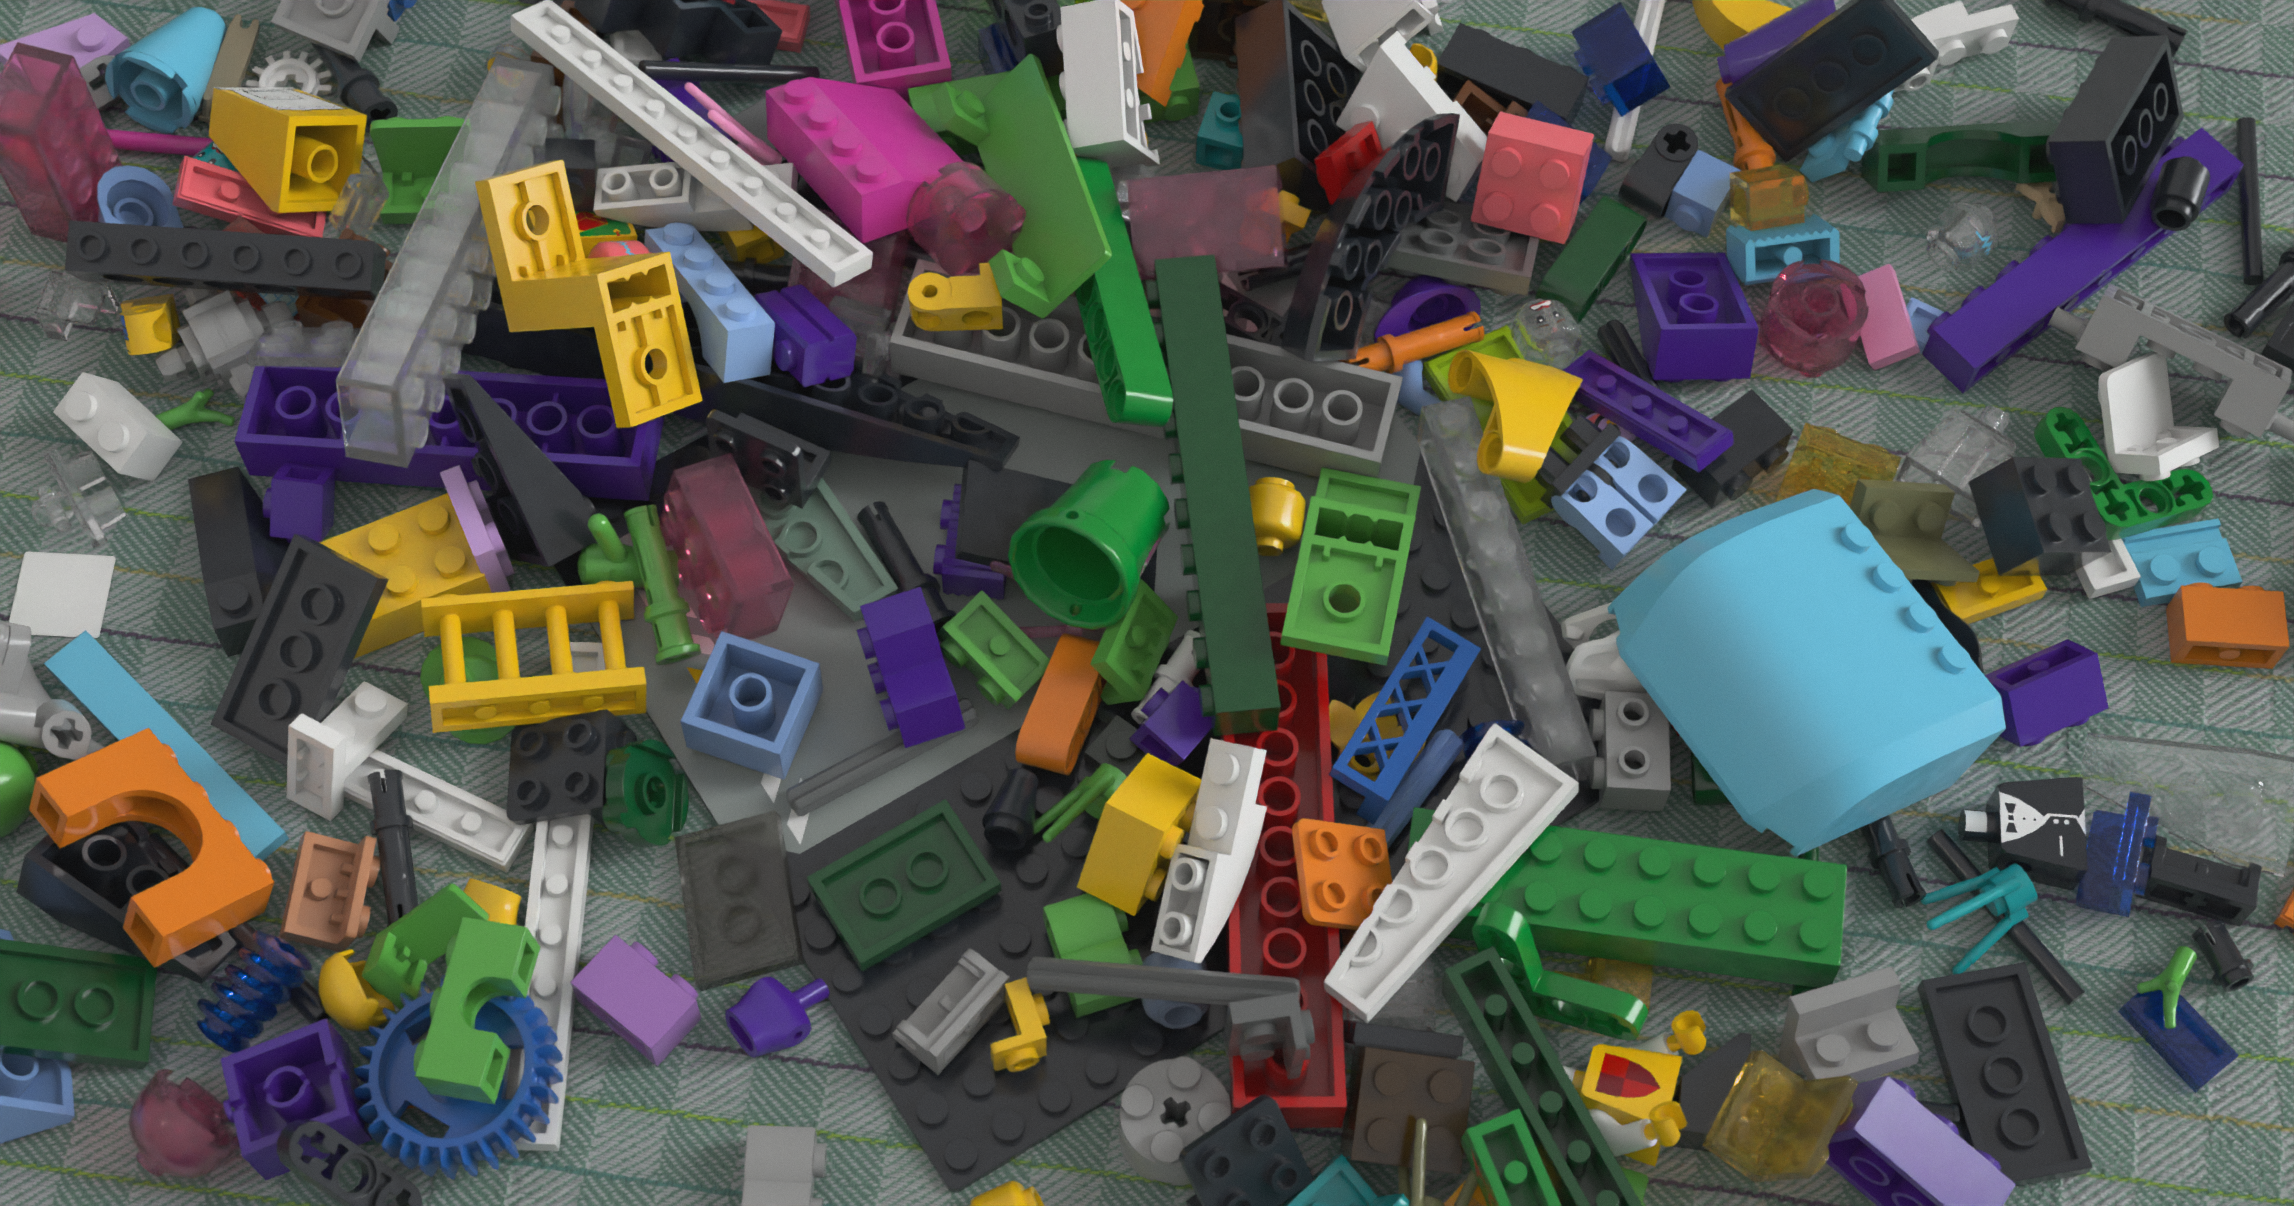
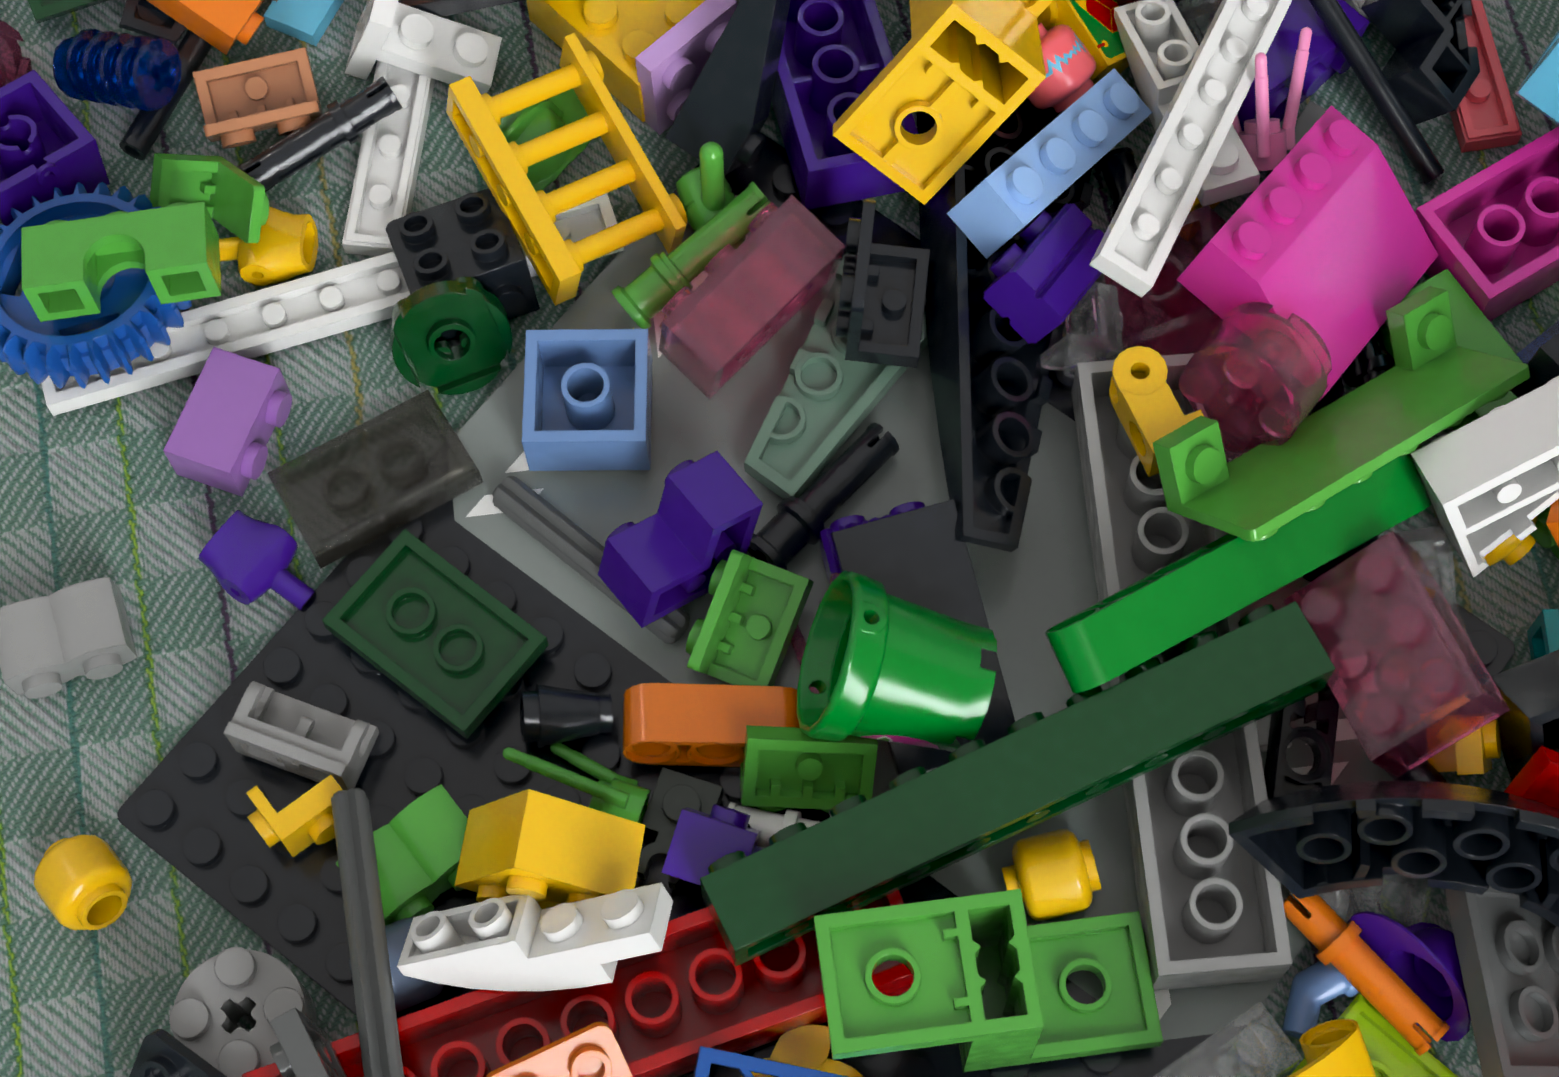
camera: 75 degrees right, 5 degrees up
(349, 996) = (135, 150): yellow hair -> none

